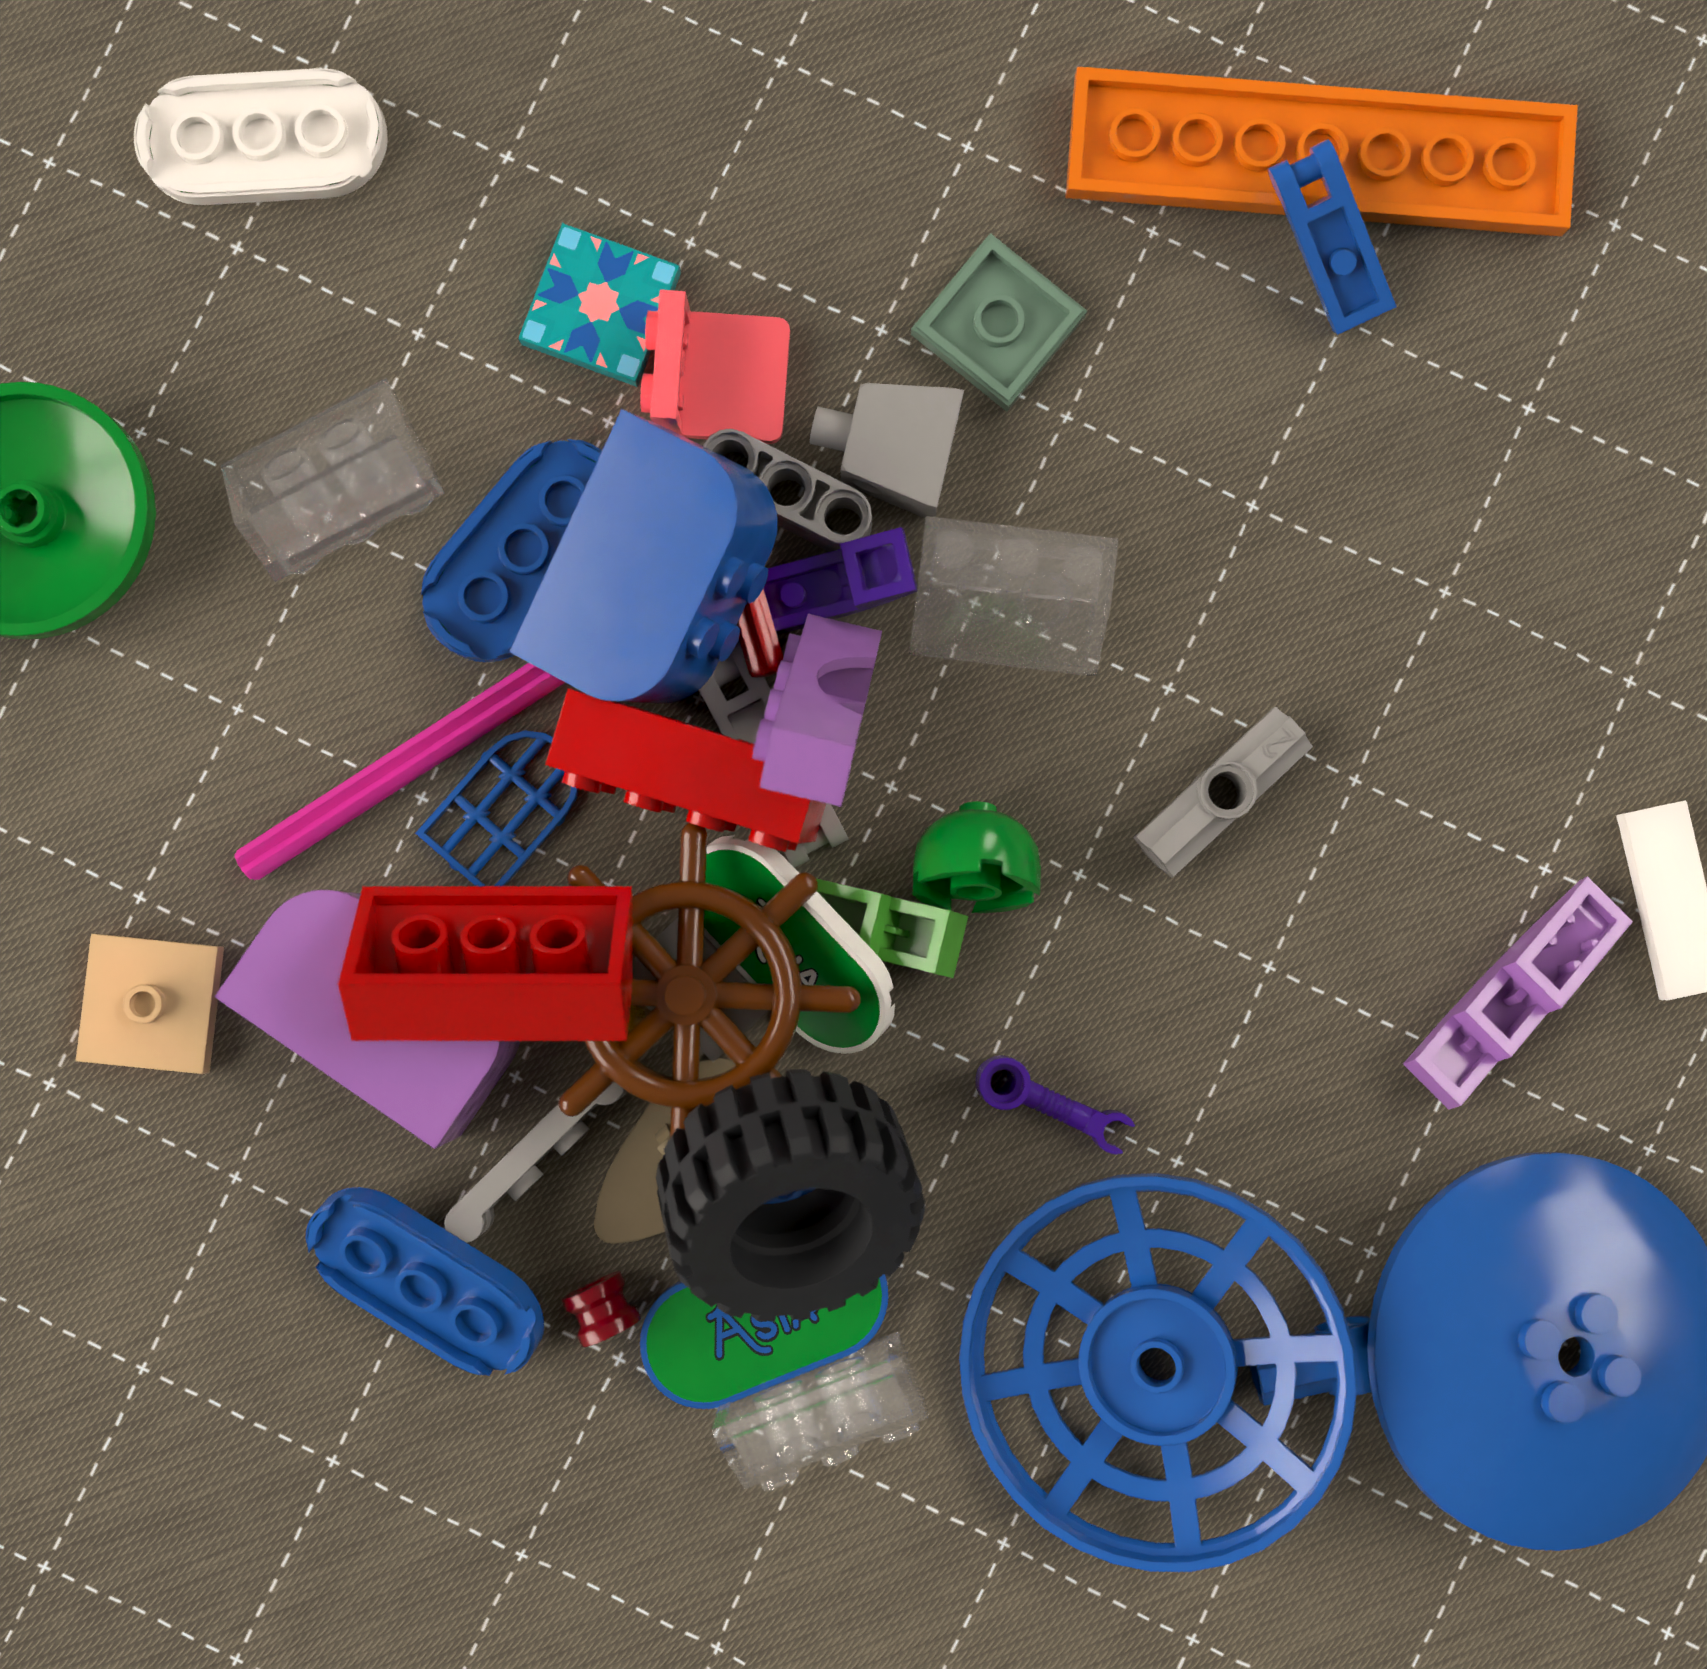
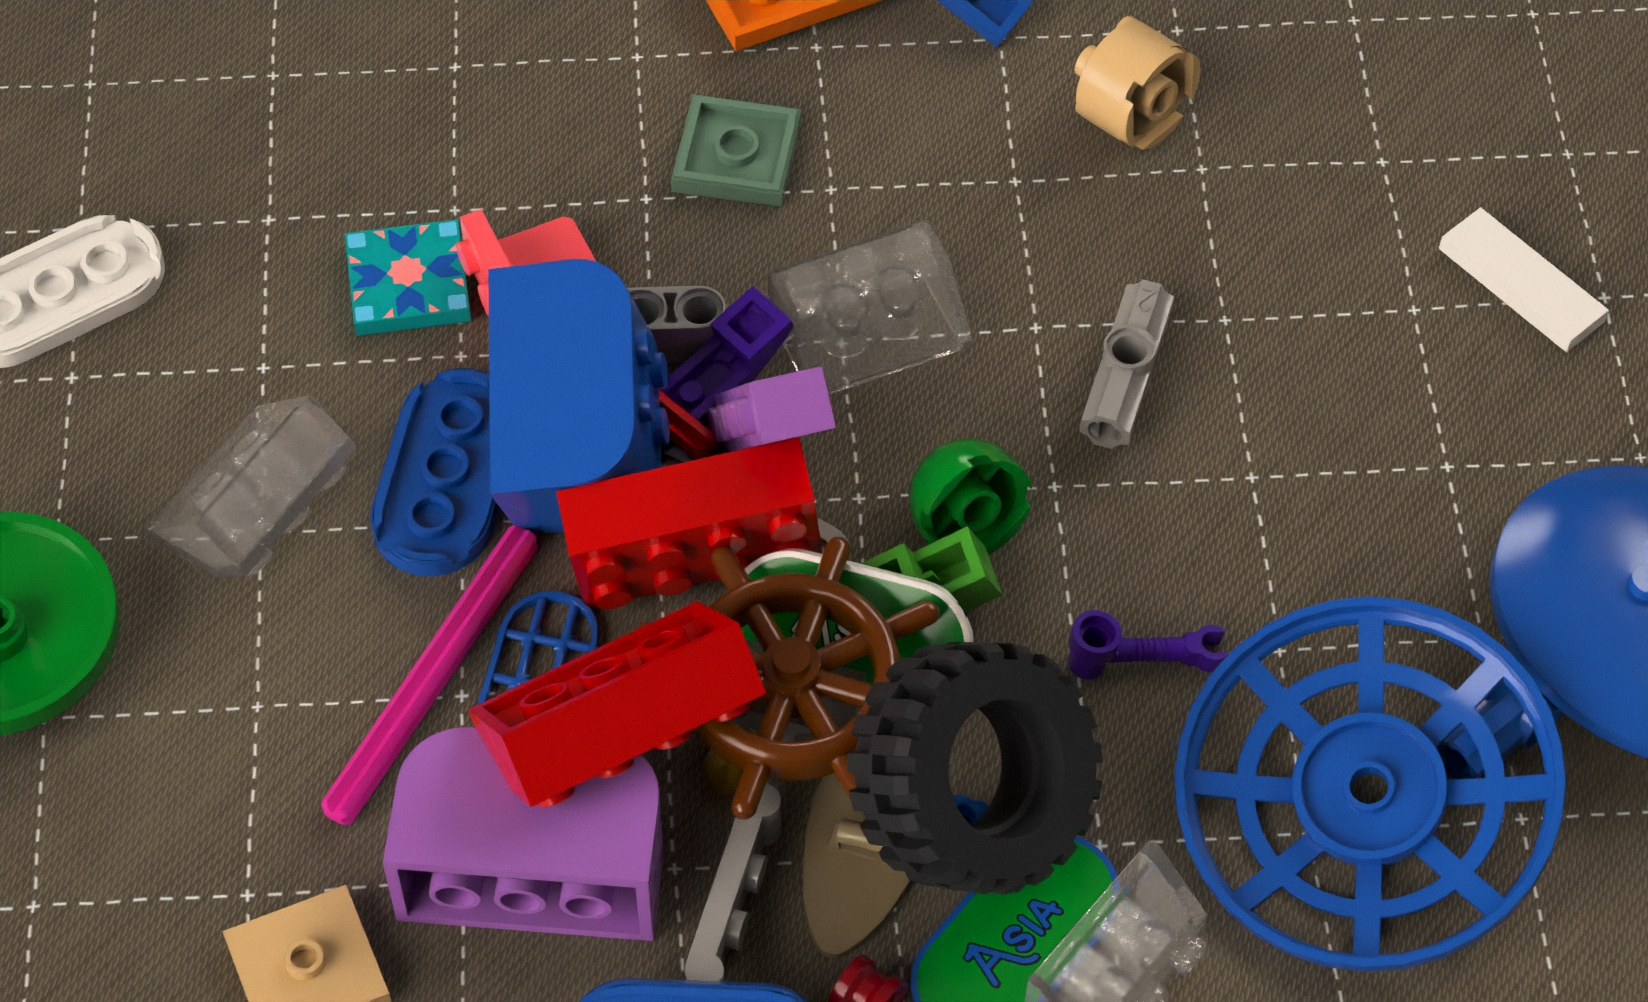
camera: 30 degrees left, 30 degrees down
(894, 442) = (708, 246): light grey torso -> none
(1431, 475) = (1135, 83): none -> tan brick
(1518, 992) = (1454, 394): medium lavender slope -> none

